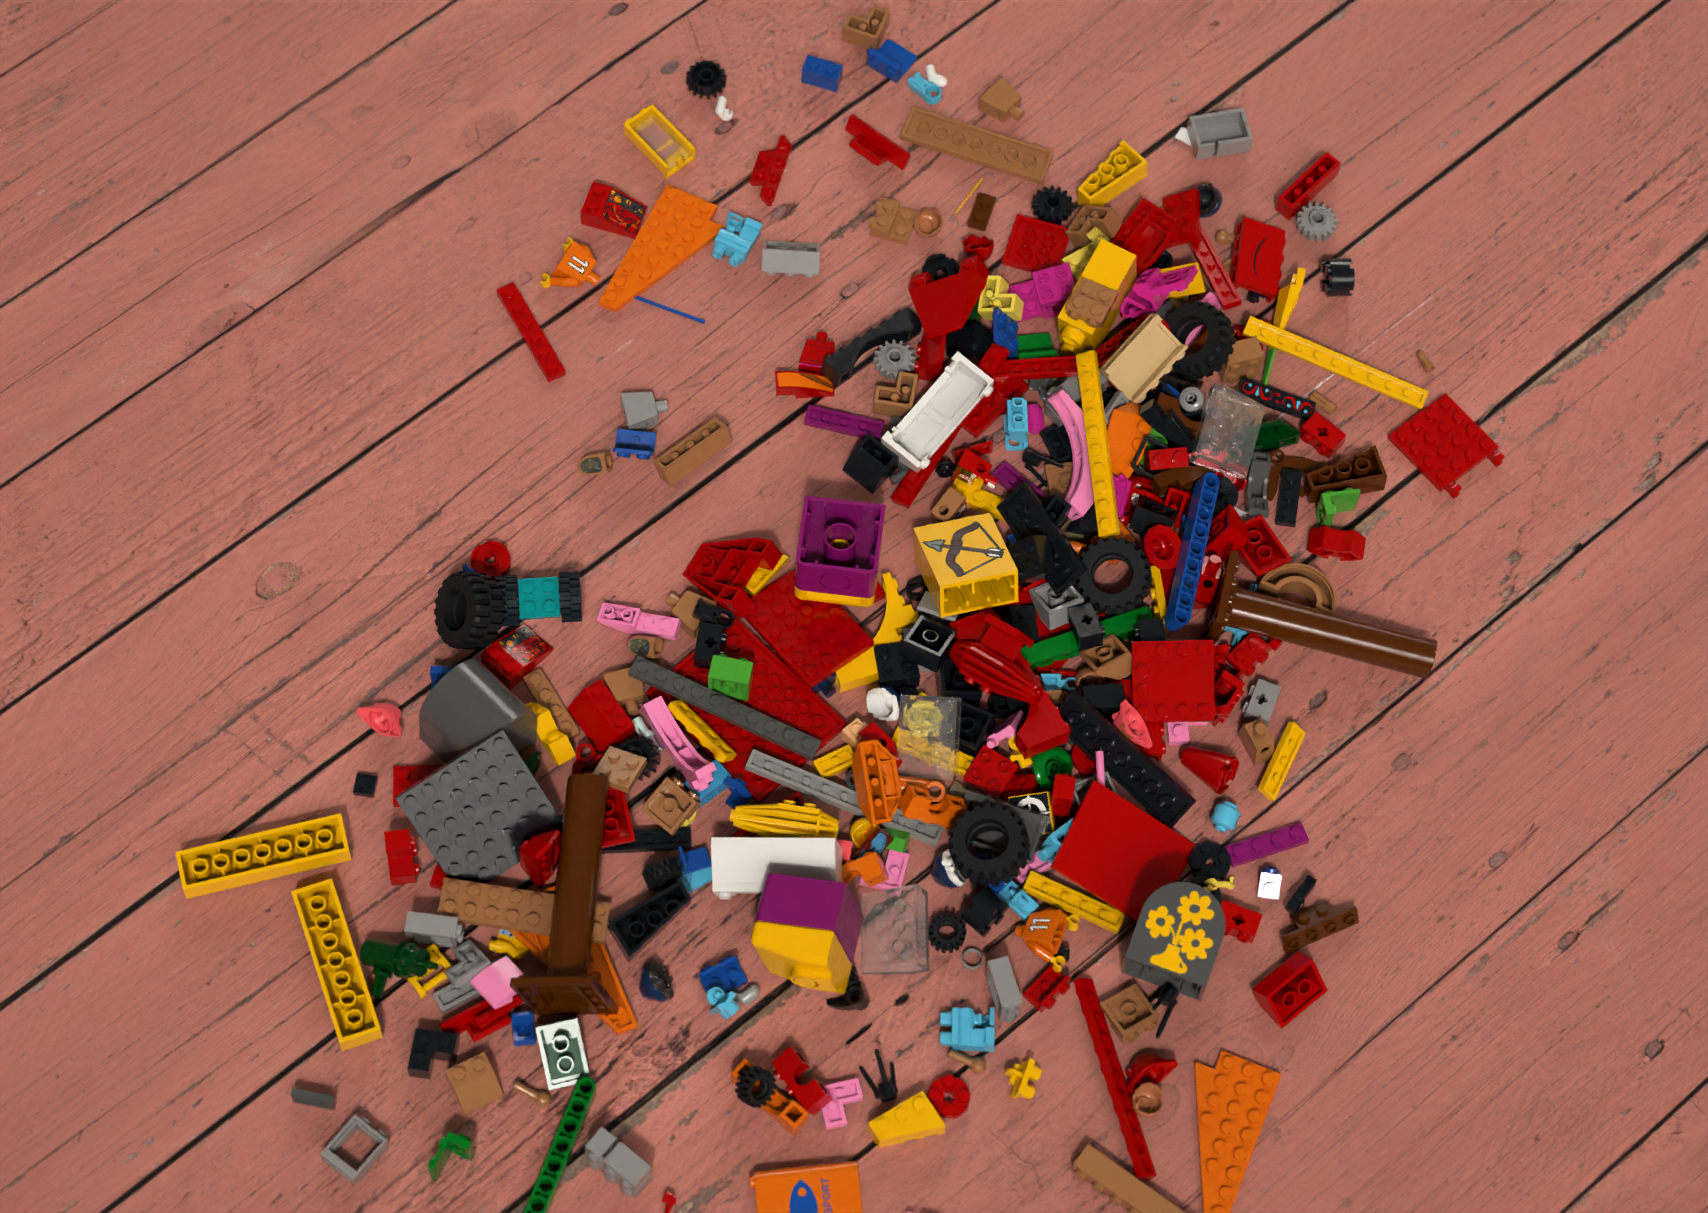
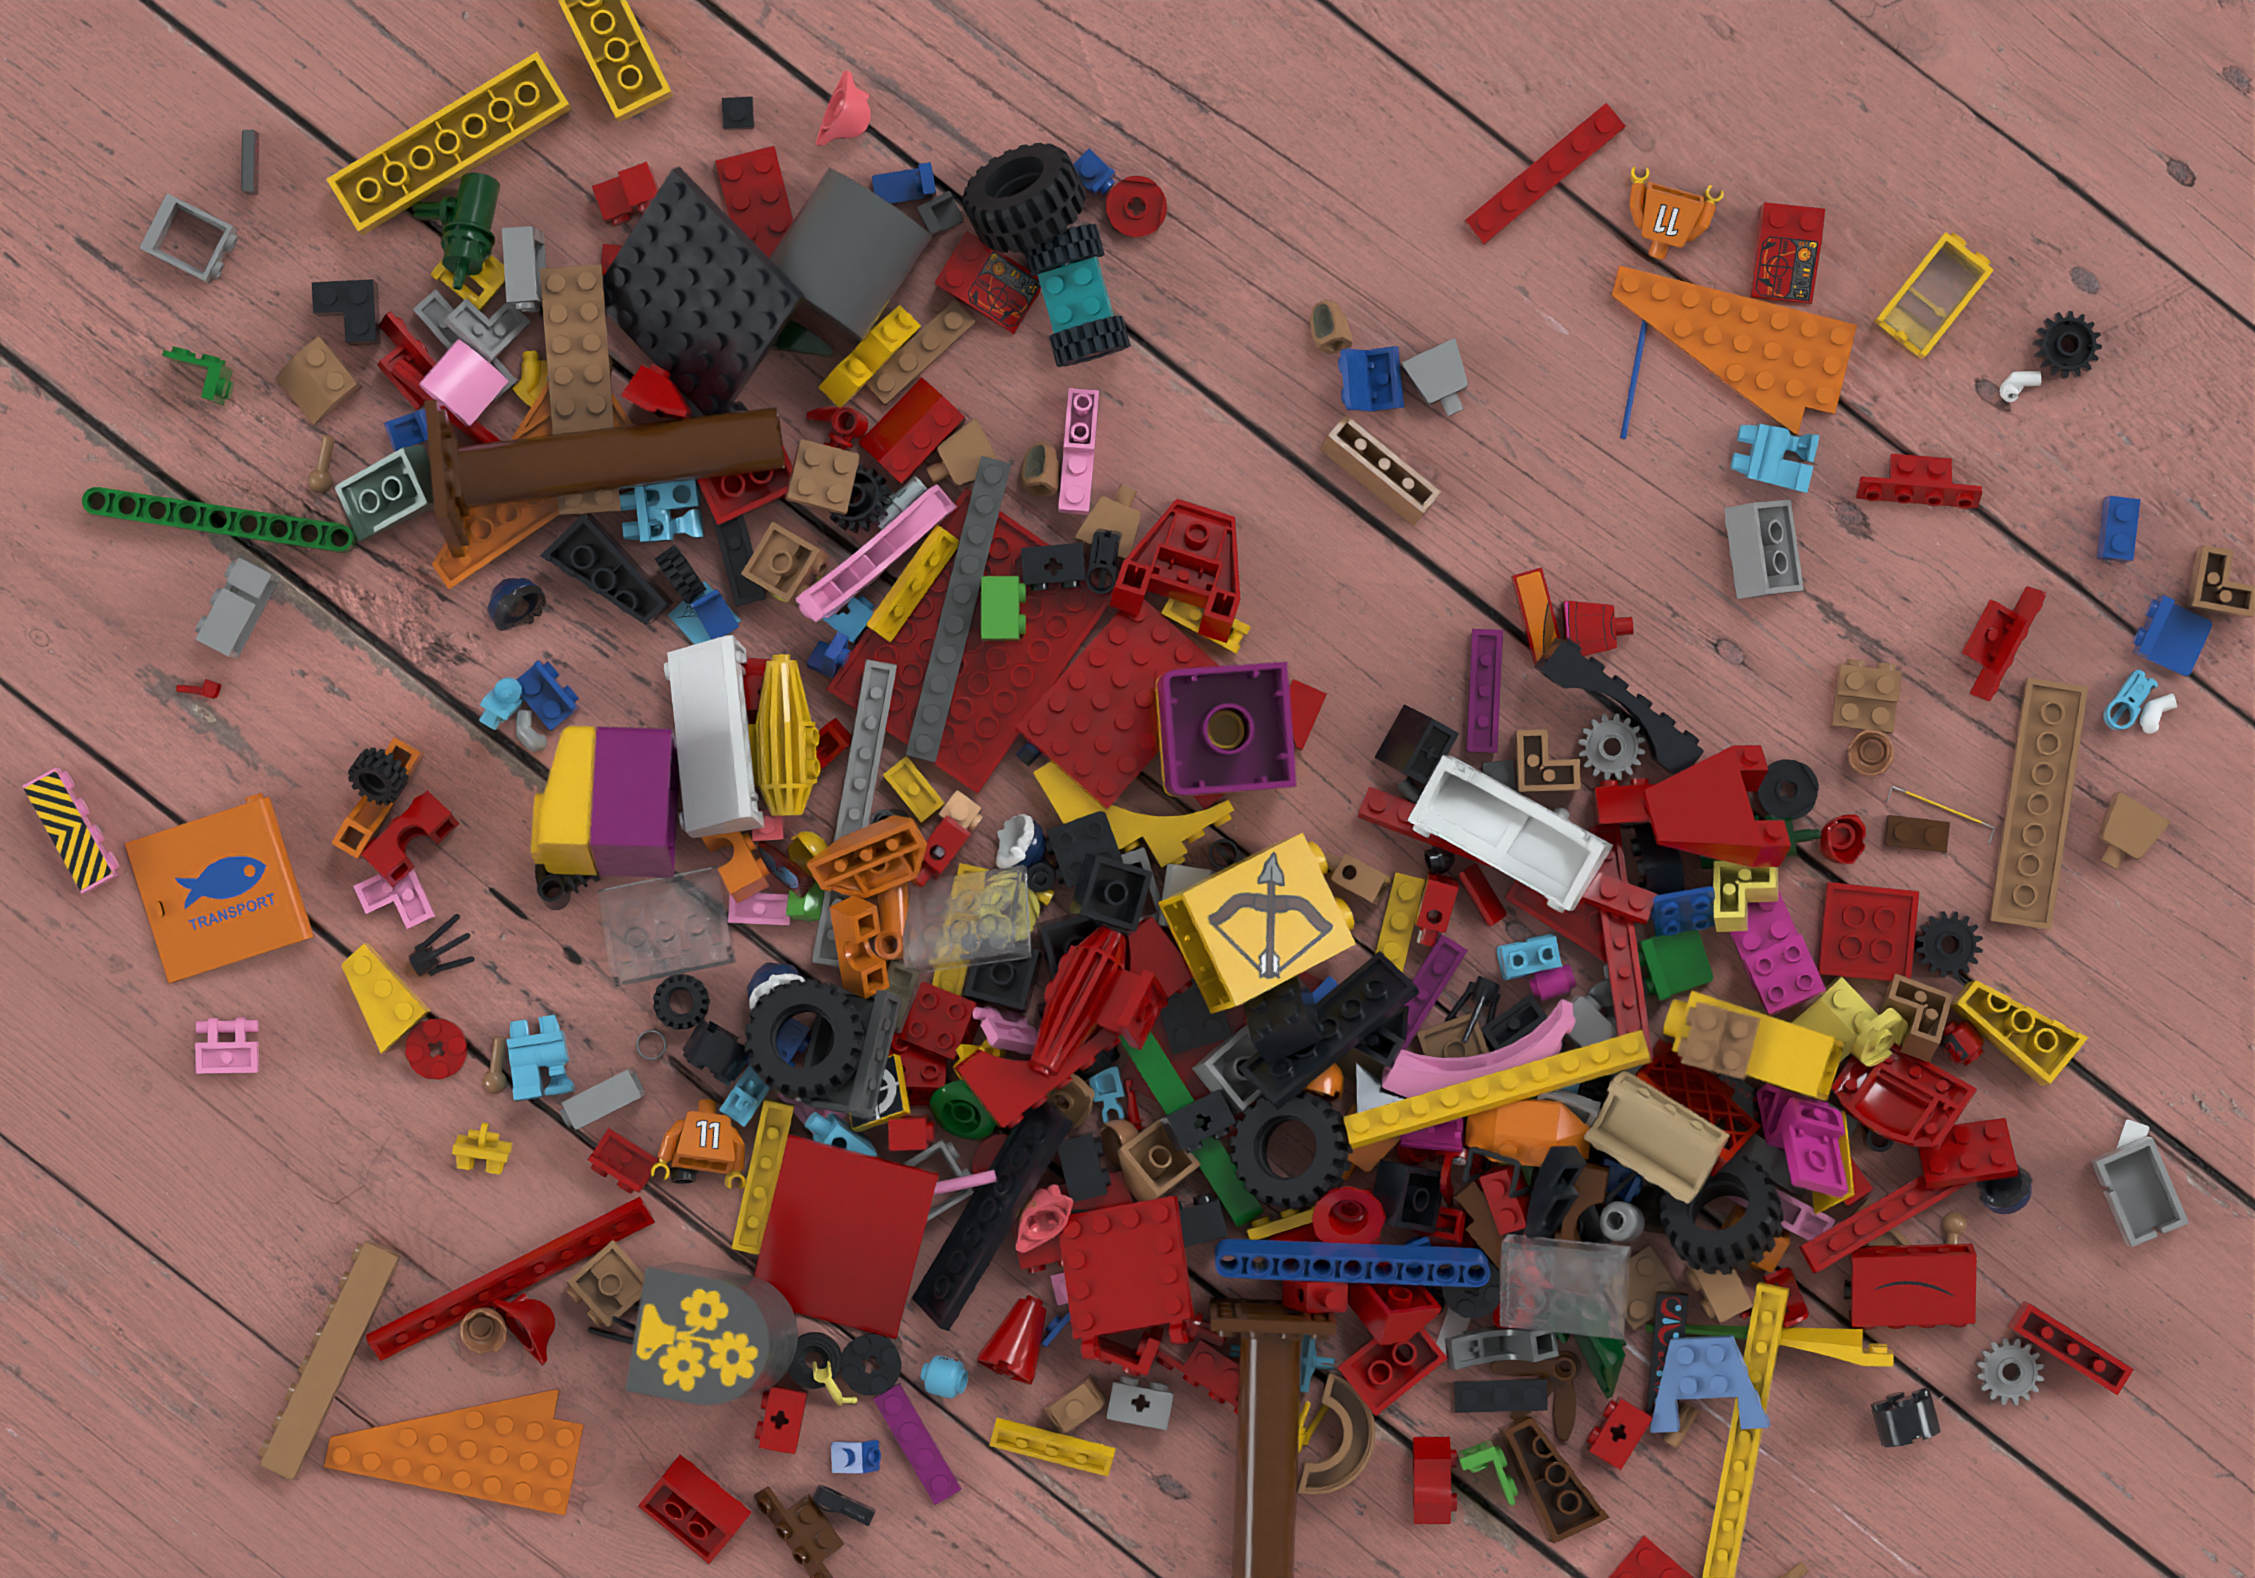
camera: 80 degrees right, 25 degrees up
(614, 885) = (654, 511): none -> medium azure hips
(1118, 204) = (1961, 1042): none -> red head
(1201, 740) = (1055, 1327): none -> blue bracket
(1291, 376) = (1705, 1370): none -> medium blue wing

